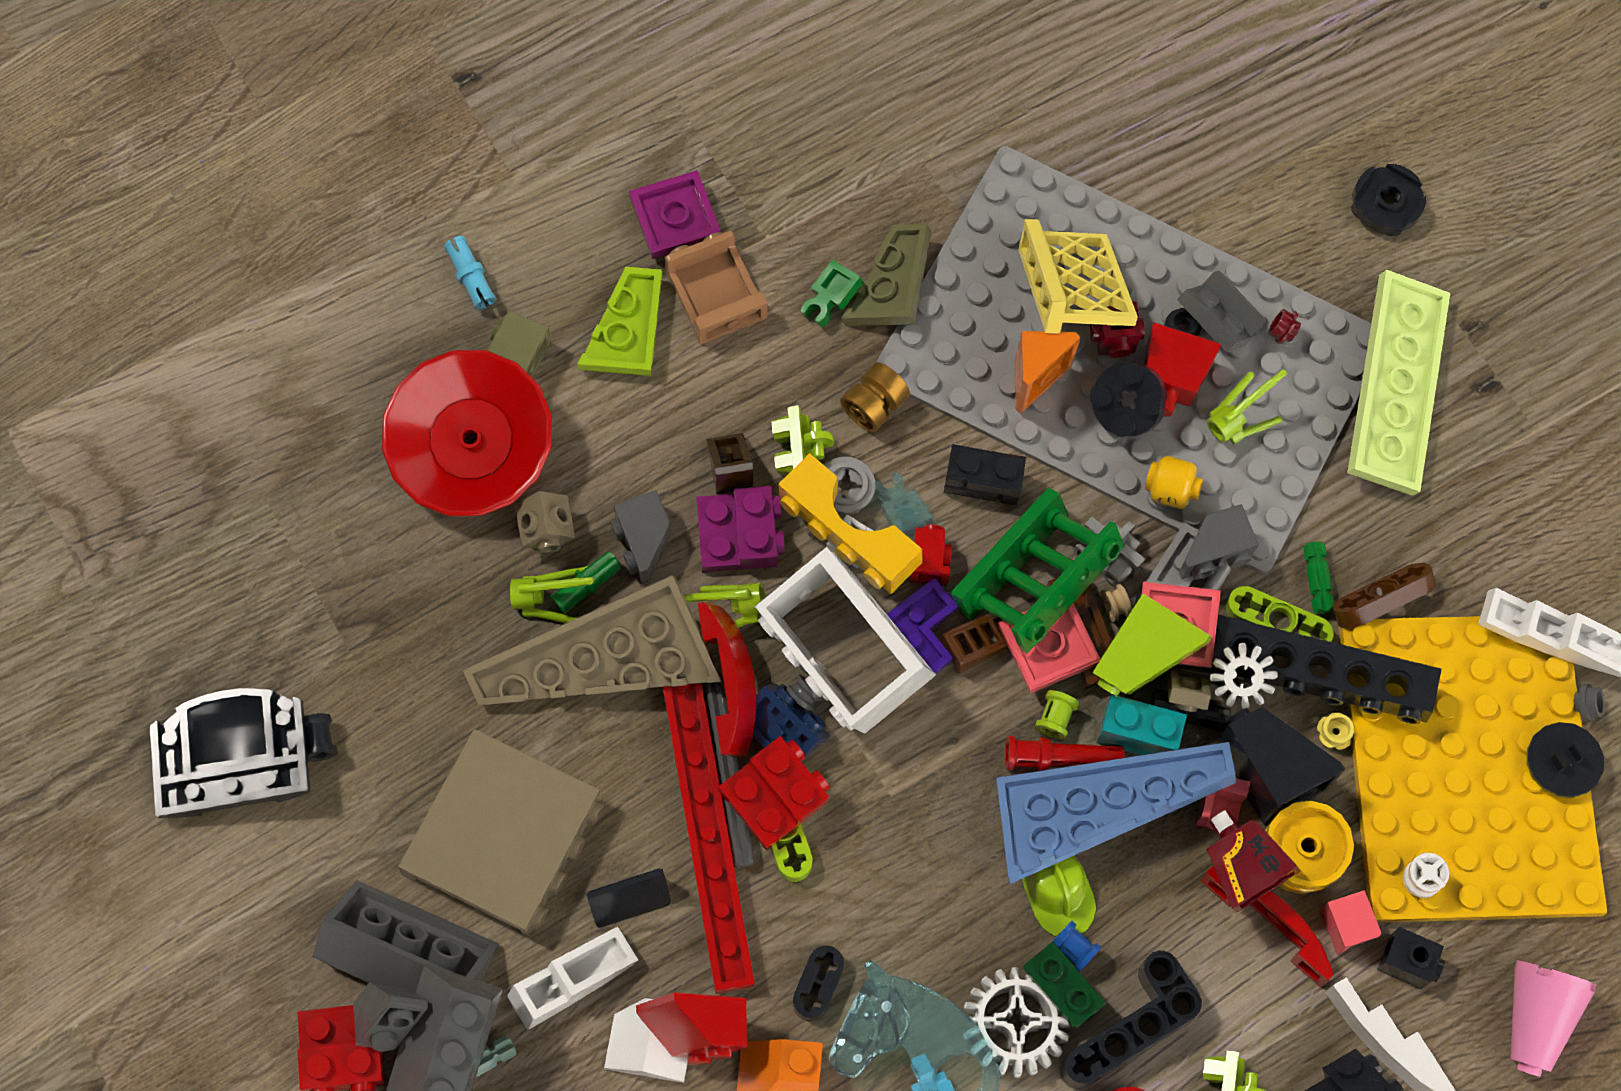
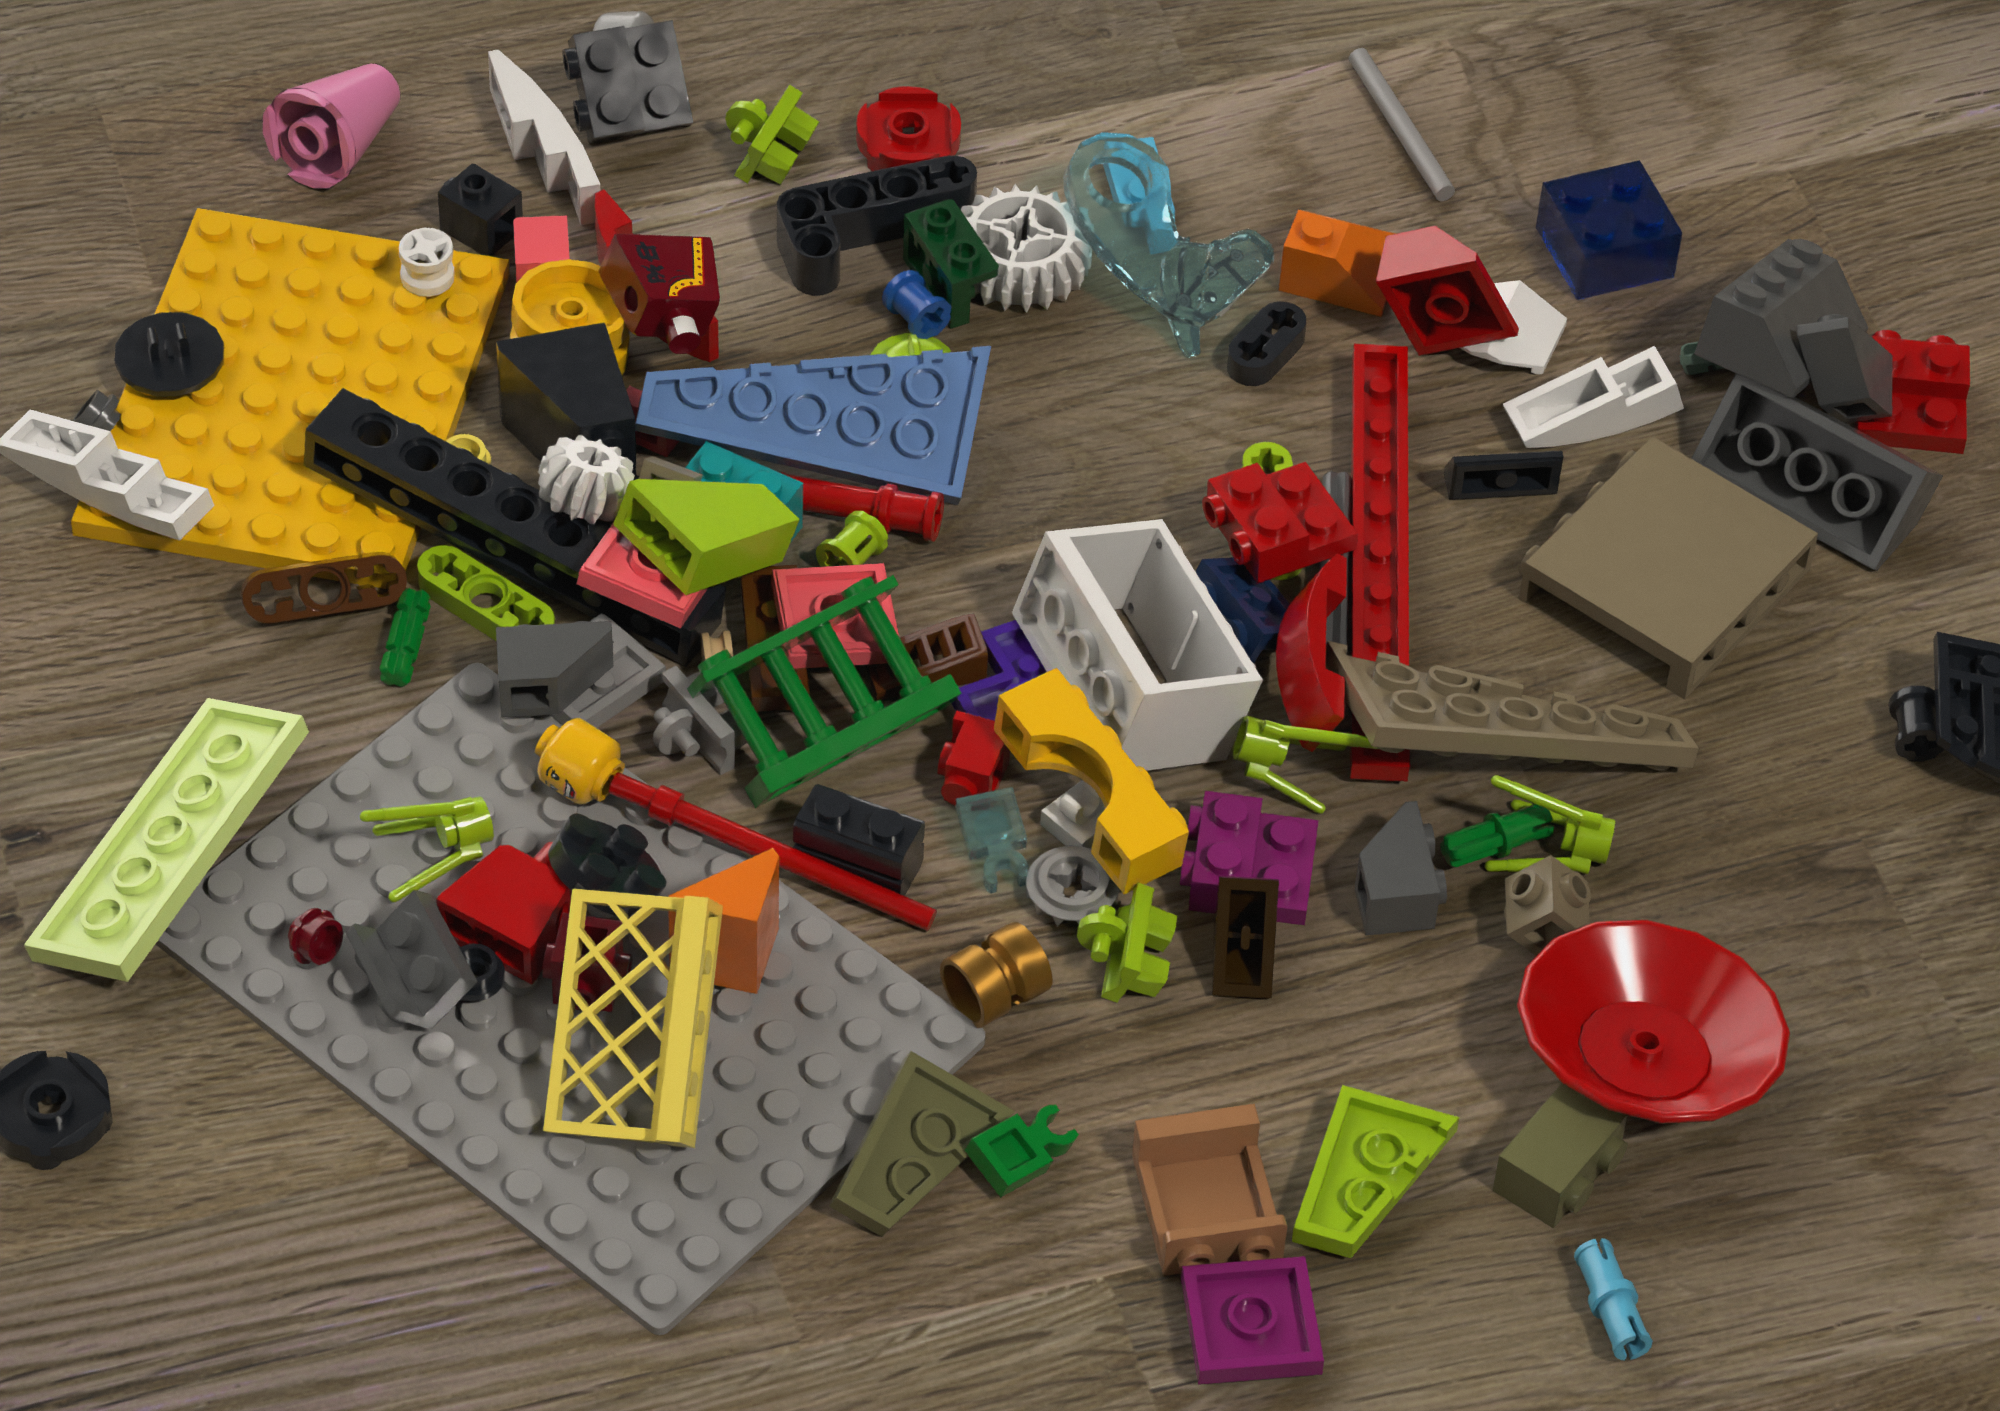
camera: 165 degrees left, 20 degrees down
(1109, 471) = (669, 807): none -> red bar

